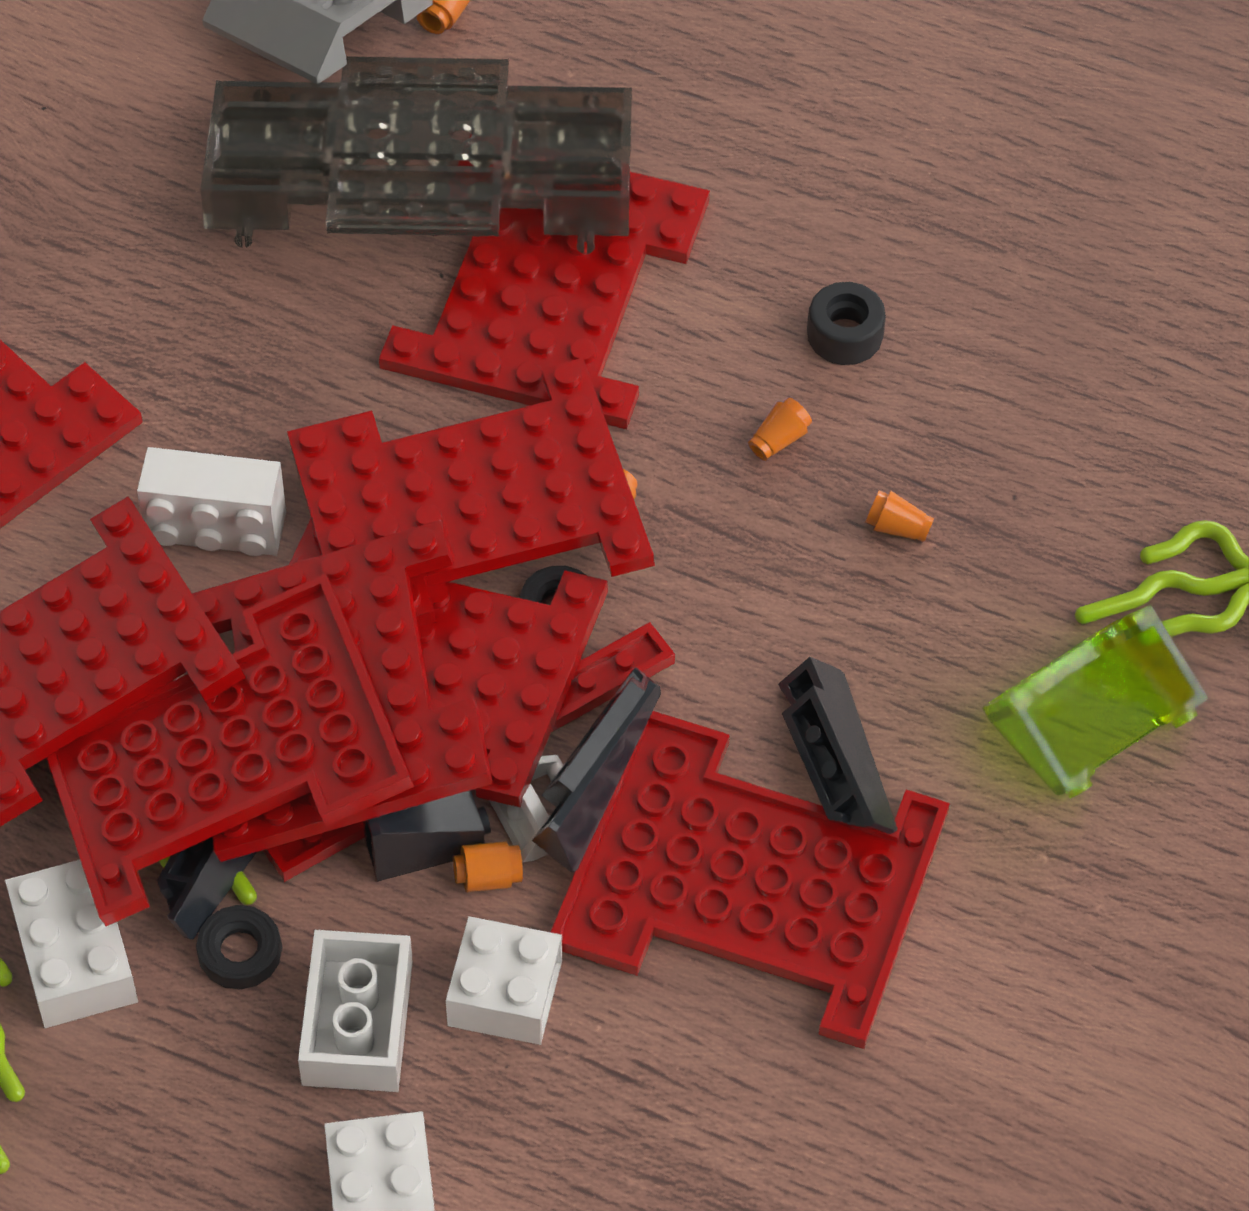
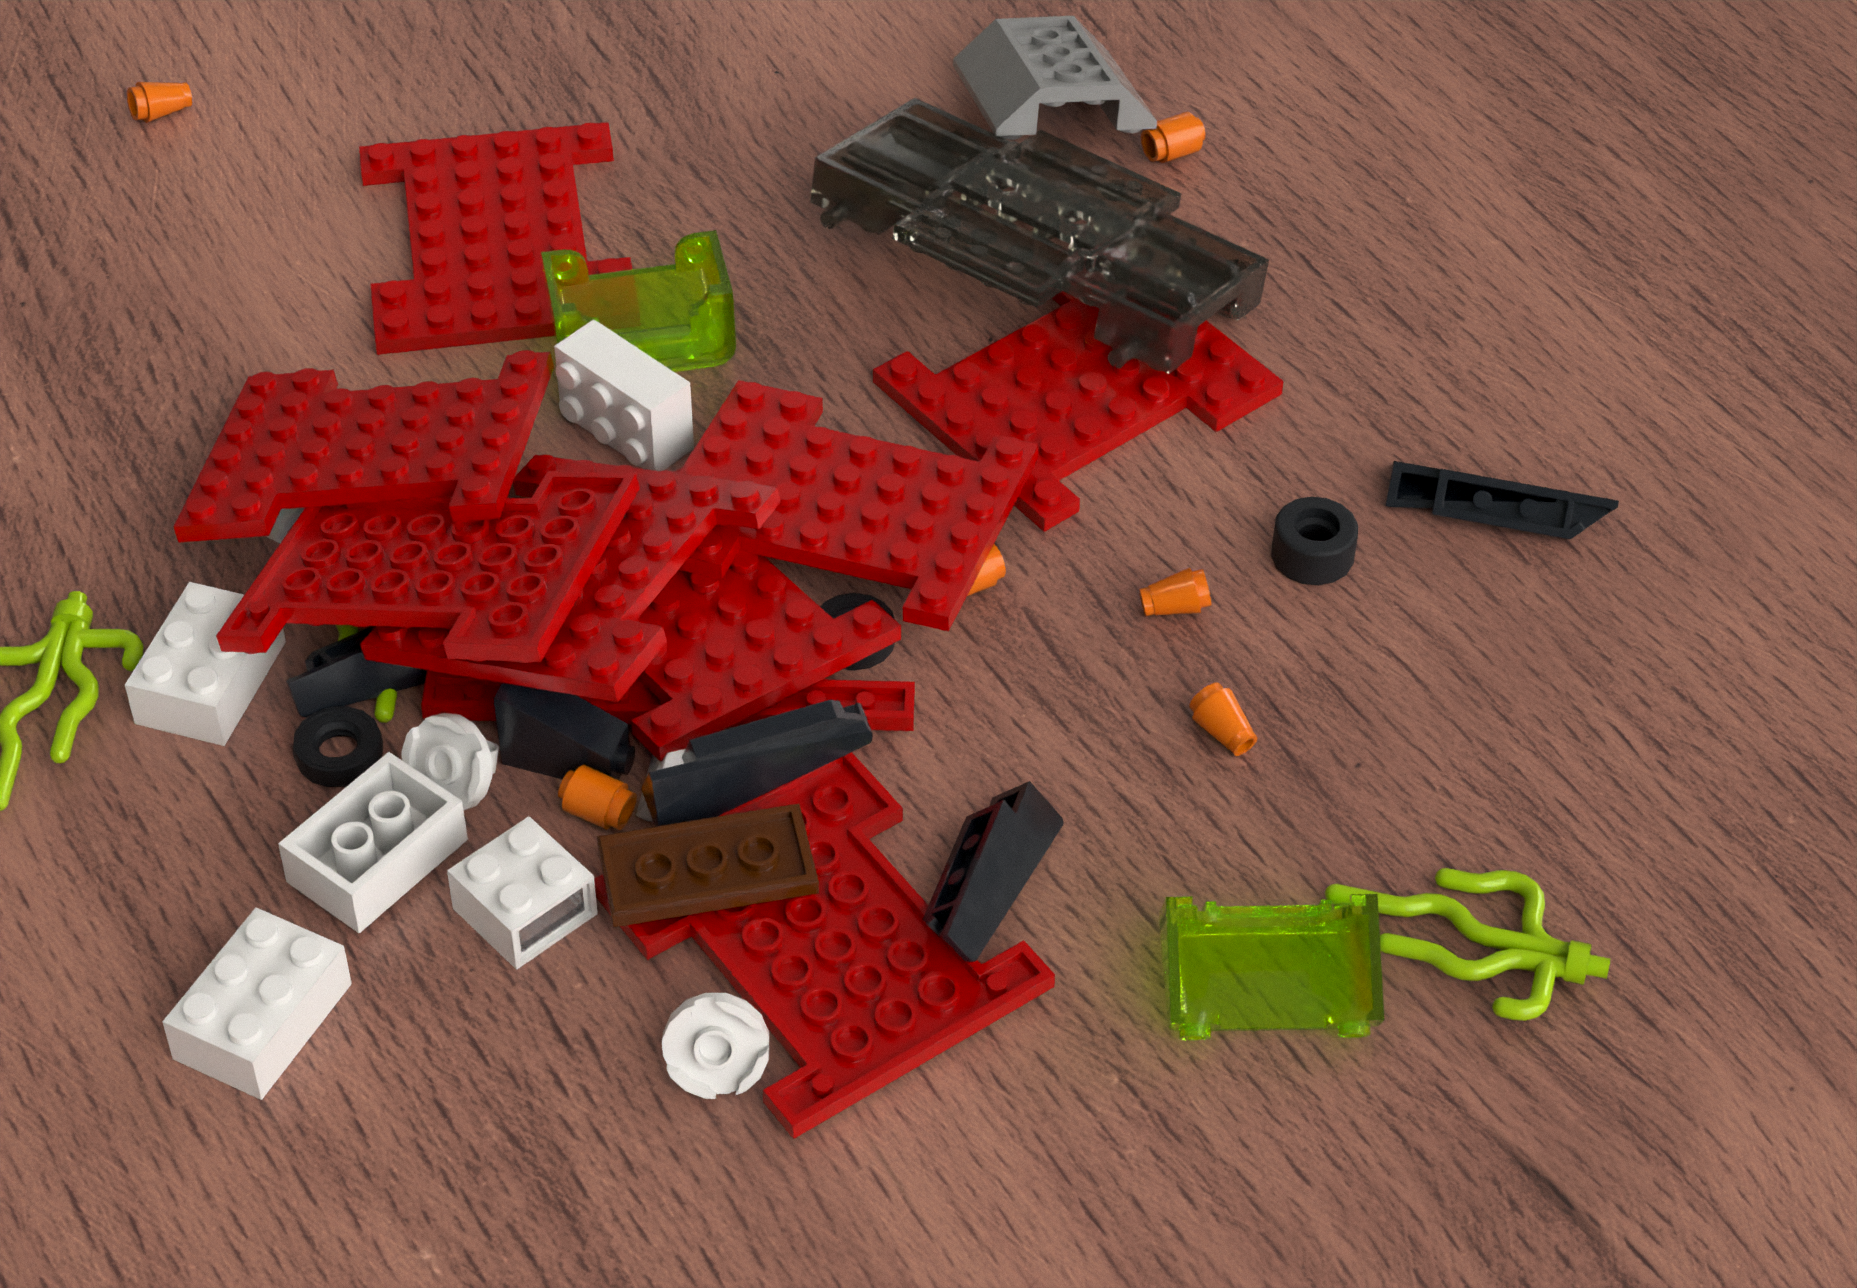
camera: 35 degrees right, 10 degrees down
(173, 396) = (668, 311): none -> clear neon green windscreen
(357, 901) = (453, 756): none -> white tile
(633, 872) = (707, 865): none -> reddish brown plate
(762, 1012) = (715, 1045): none -> white tile
(944, 211) = (1495, 501): none -> black wedge

